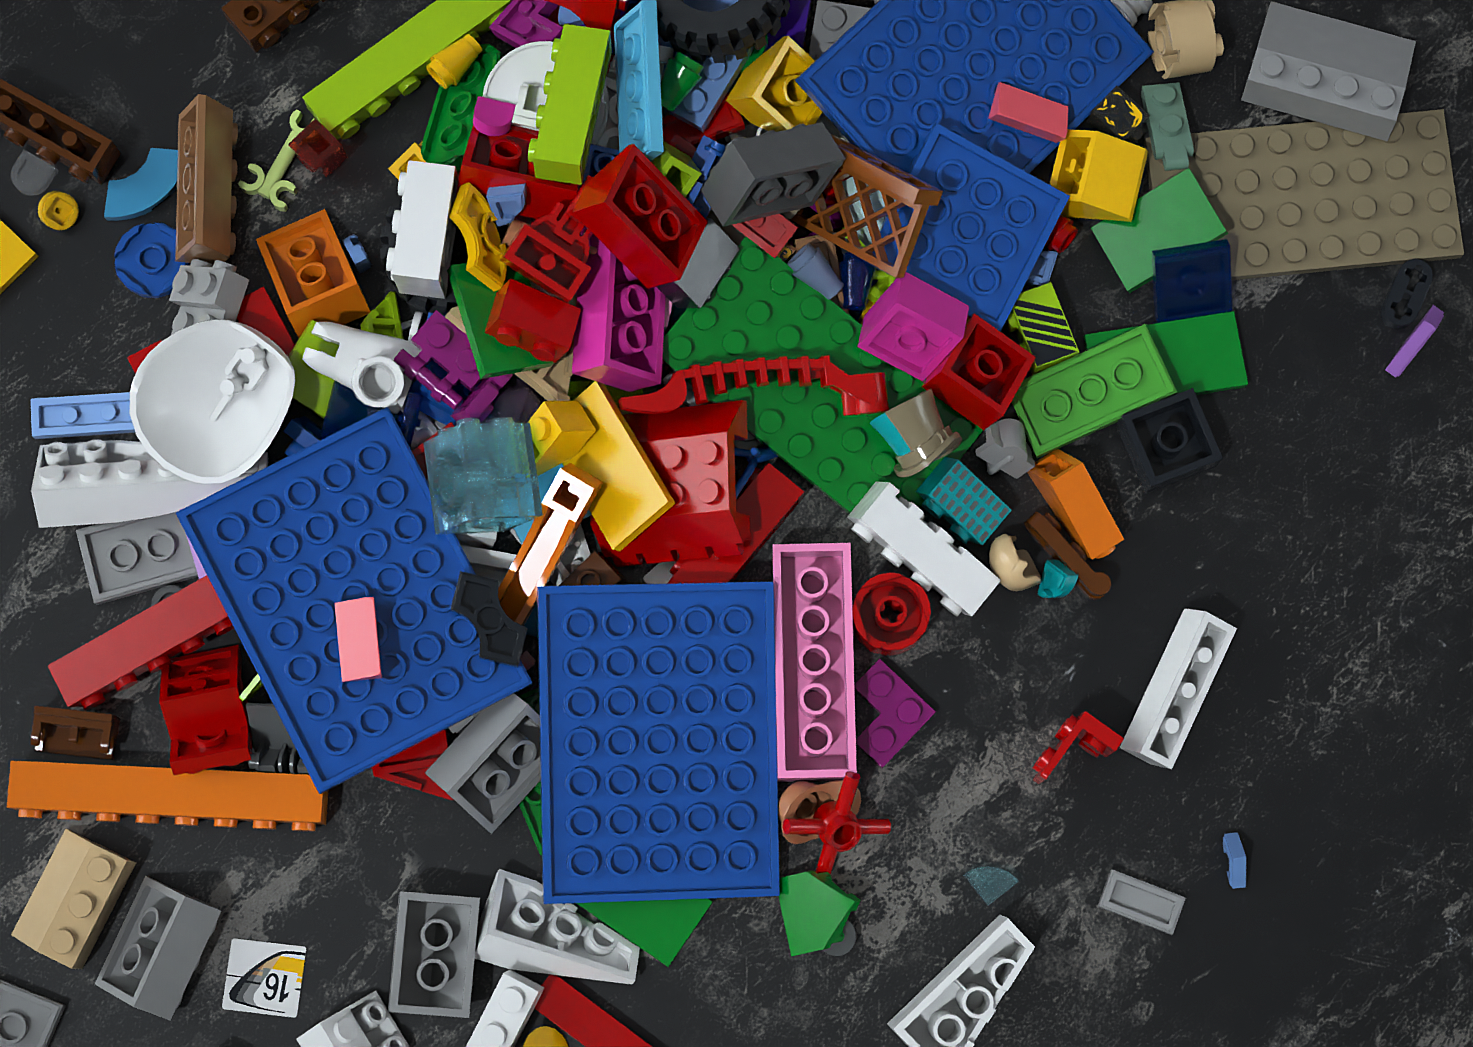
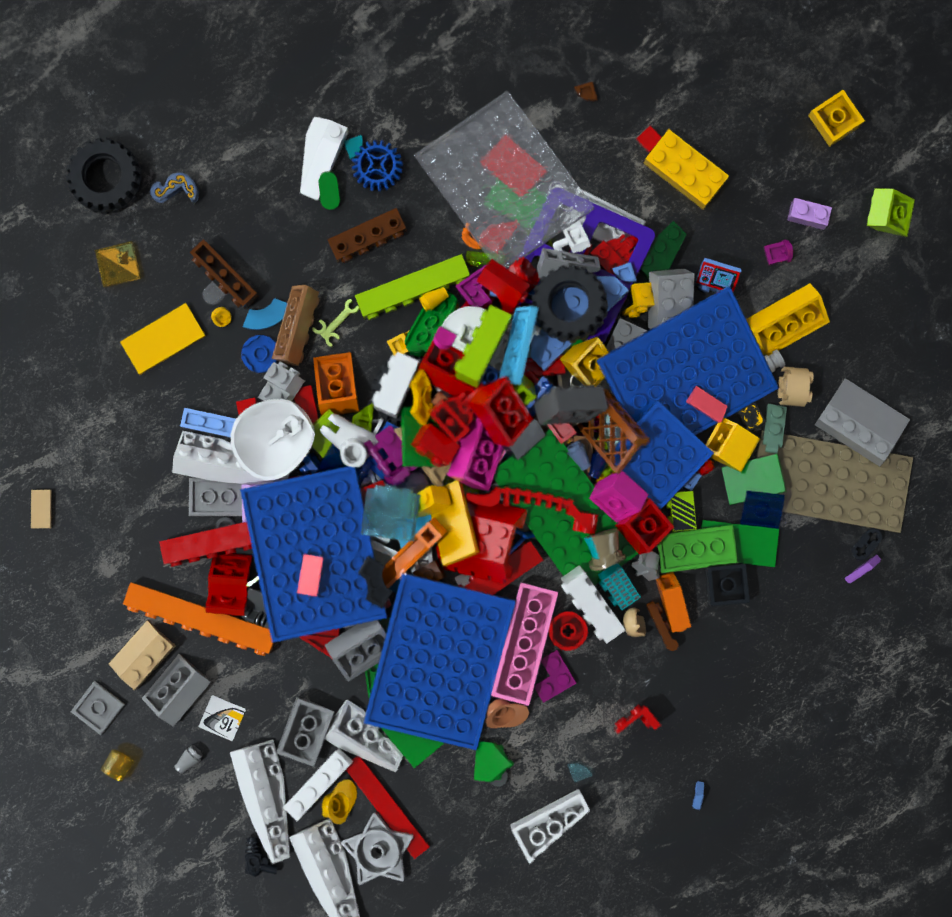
camera: 20 degrees right, 5 degrees up
(74, 732) = (163, 576): reddish brown hinge -> none
(318, 149) = (355, 323): clear red brick -> none
(357, 253) = (360, 378): medium blue tile -> none
(506, 202) = (438, 384): medium blue tile -> none
(678, 80) = (539, 344): green cone -> none
(837, 824) = (513, 725): red bar -> none
(1056, 580) = (652, 636): teal tile -> none
(1141, 902) = (648, 802): light grey tile -> none
(1178, 688) = (695, 706): white brick -> none

